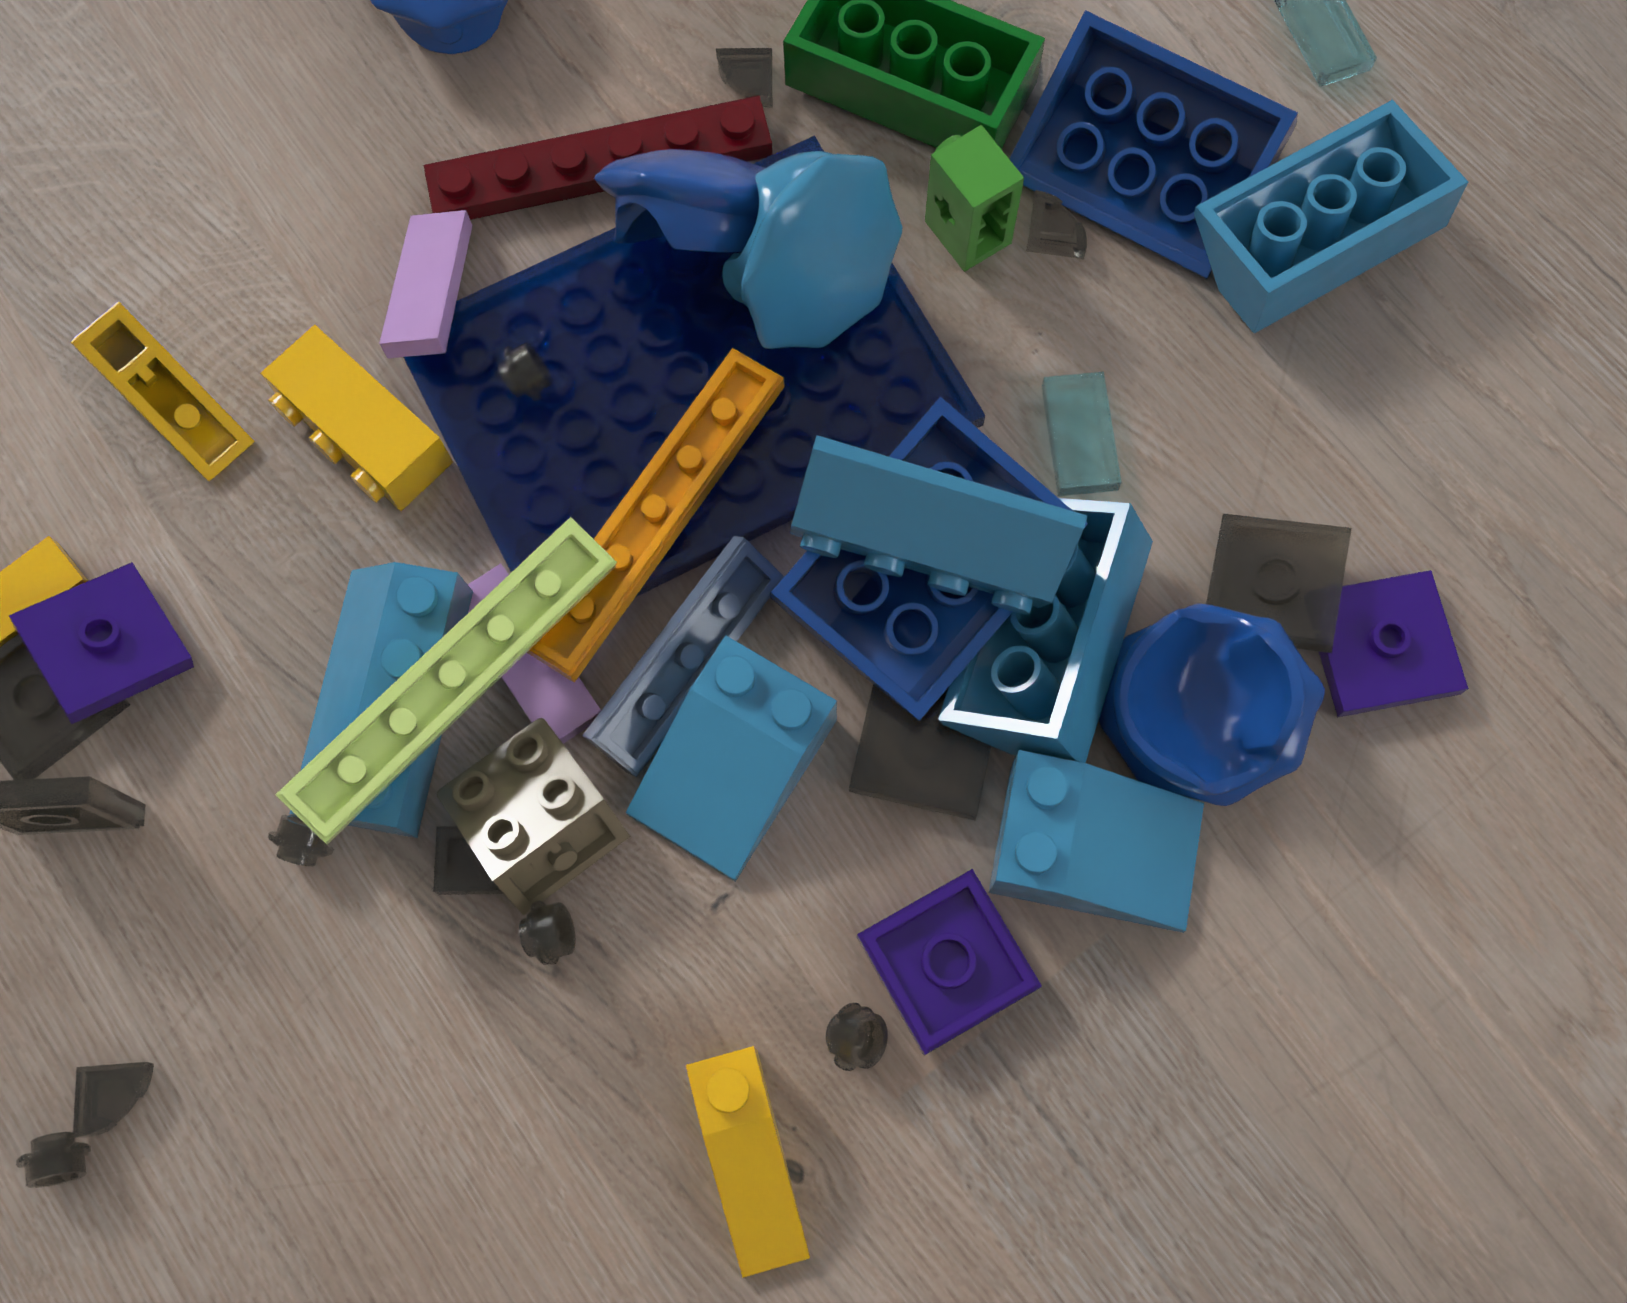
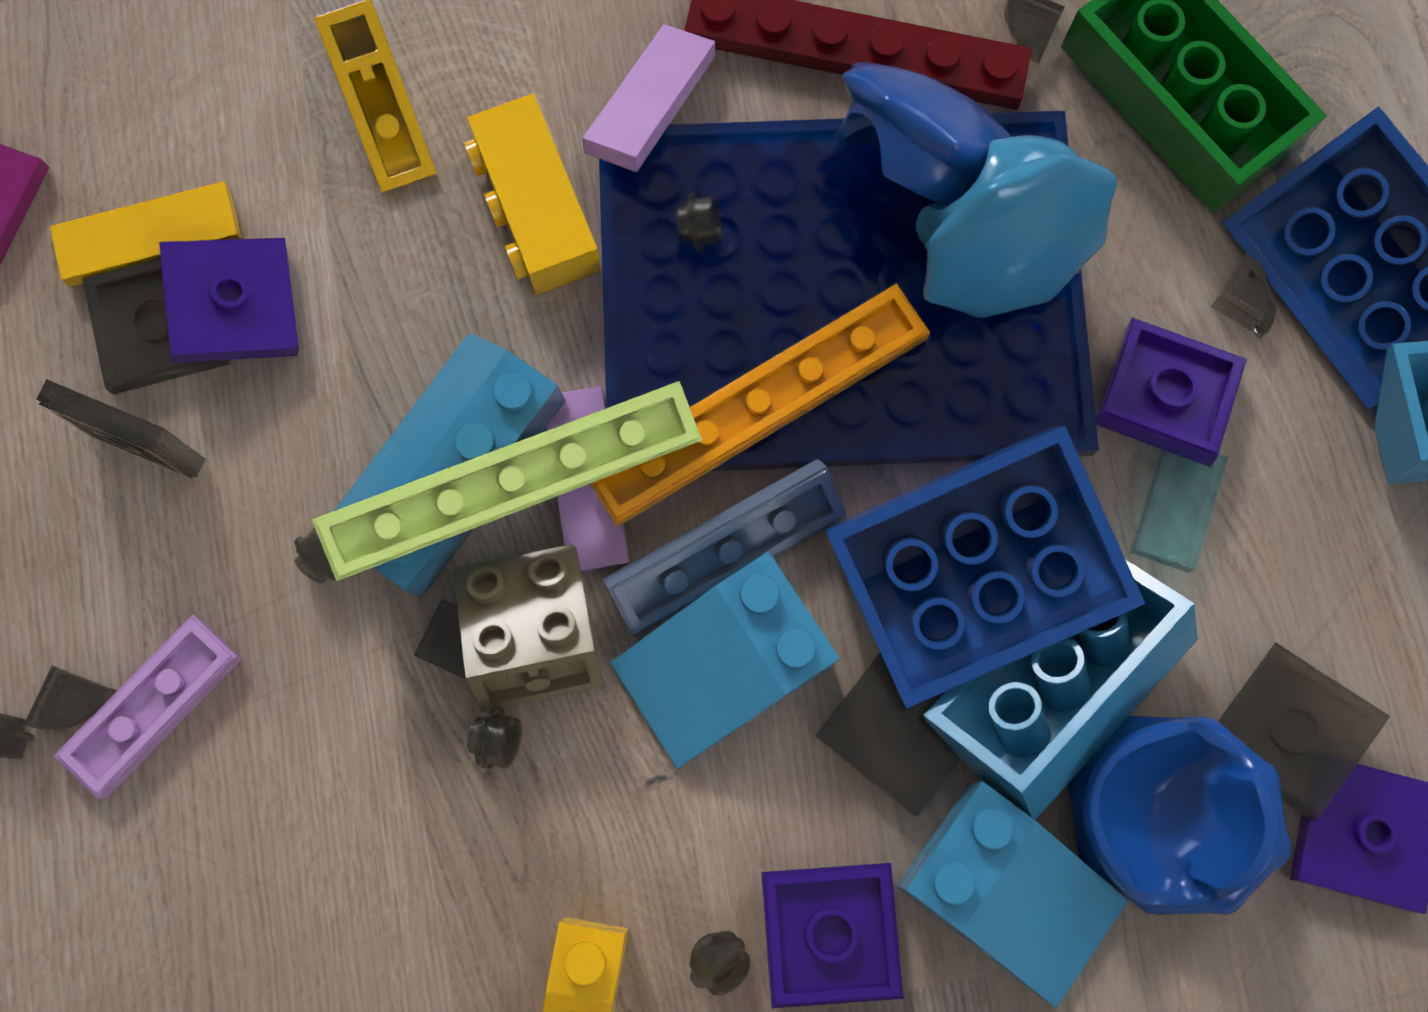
camera: 20 degrees right, 5 degrees up
(191, 1065) = (148, 707): none -> lavender tile
(934, 526) = (1004, 550): dark azure slope -> none
(972, 197) = (1185, 238): bright green brick -> none
(1025, 338) = (1171, 392): none -> dark purple plate

